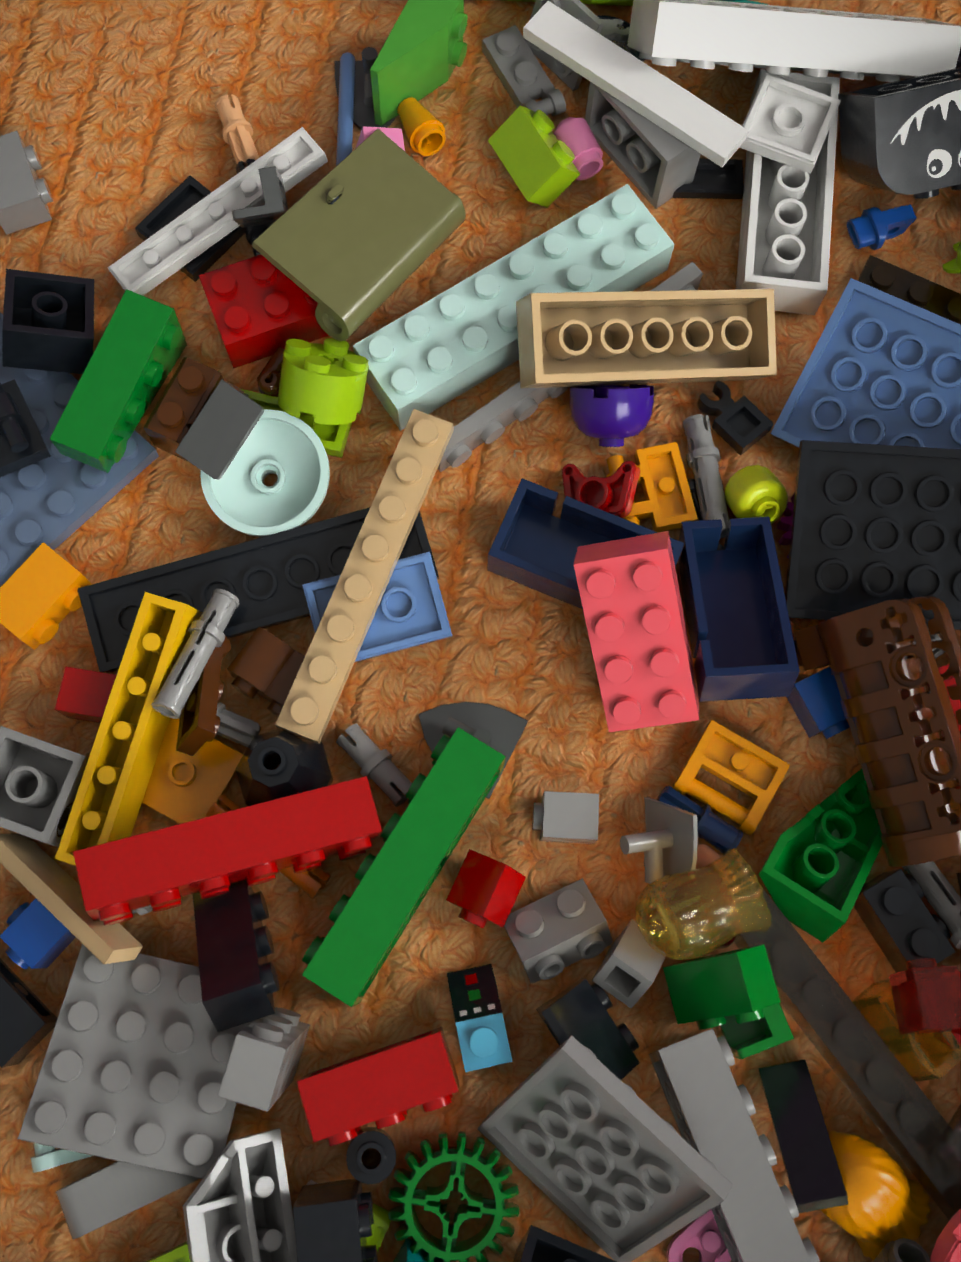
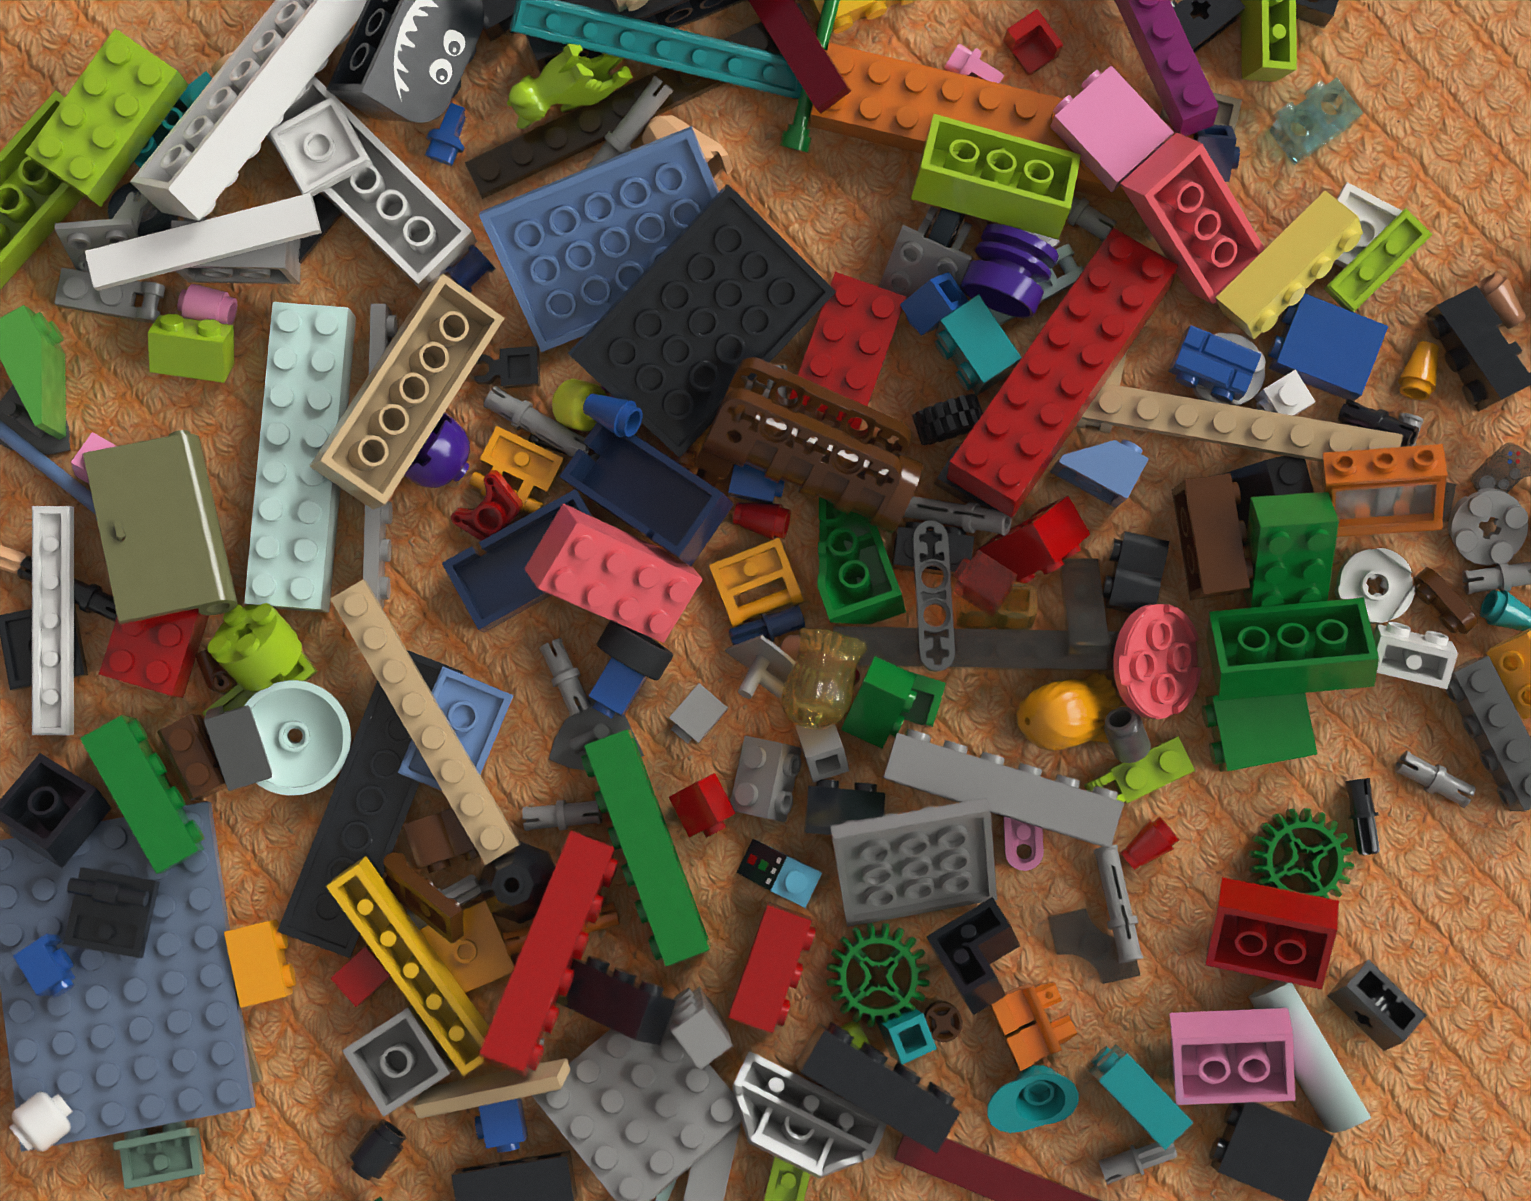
camera: 50 degrees left, 10 degrees up
(204, 637) = (387, 868): light grey pin -> none
(274, 200) = (94, 584): dark grey panel -> none
(371, 1138) = (797, 1005): black brick -> none
(422, 128) = (94, 409): light orange cone -> none
(504, 671) = (565, 677): none -> light grey pin
(532, 723) = (616, 689): none -> blue brick
(581, 710) = (635, 650): none -> black tyre
(782, 524) = (615, 414): none -> blue cone
(793, 324) = (470, 268): none -> clear blue bush
(793, 737) = (763, 518): none -> red cone
(803, 1137) = (1004, 726): black tile -> none
(876, 964) = (933, 596): none -> dark grey beam

